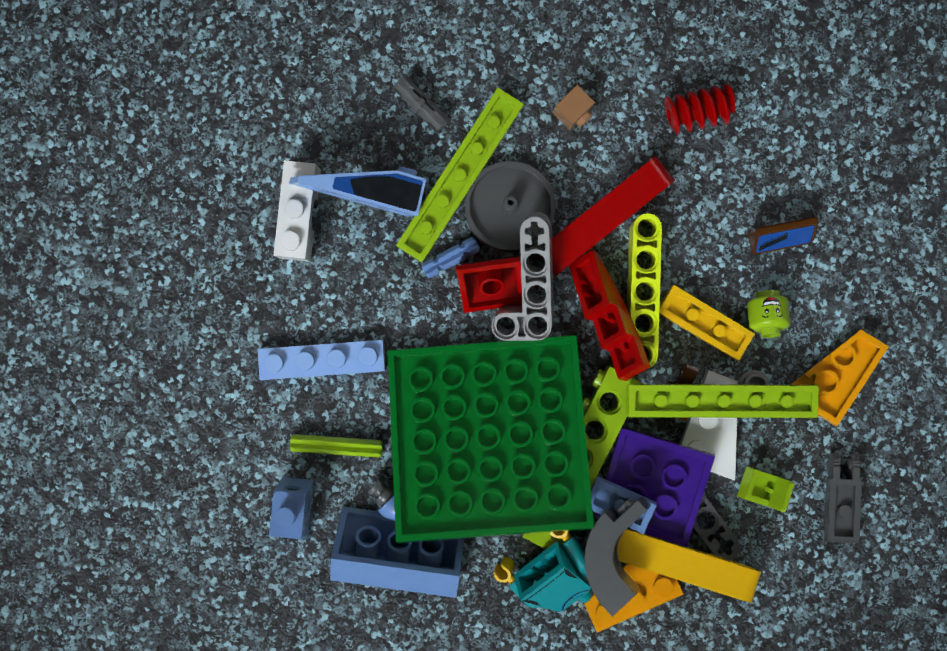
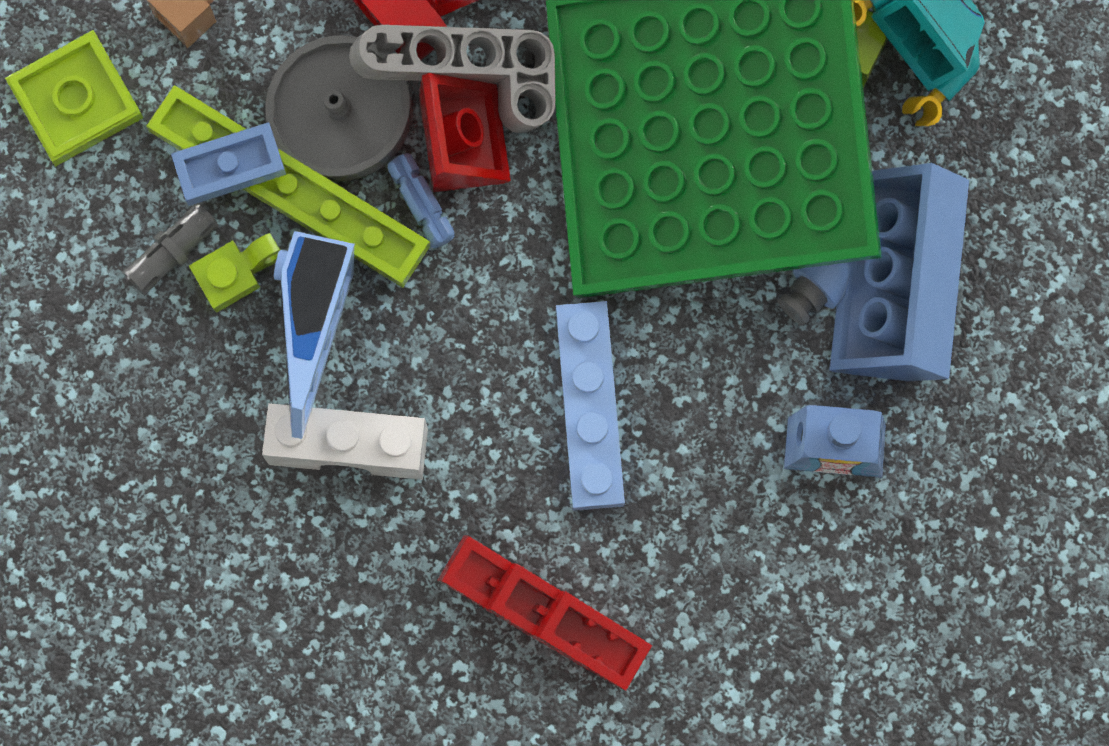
camera: 90 degrees left, 10 degrees down
(194, 331) = (545, 612): none -> red slope
(336, 445) = (730, 379): lime axle -> none
(407, 141) = (228, 273): none -> lime plate
(469, 137) = (228, 164): none -> medium blue plate
(519, 43) = (74, 98): none -> lime tile

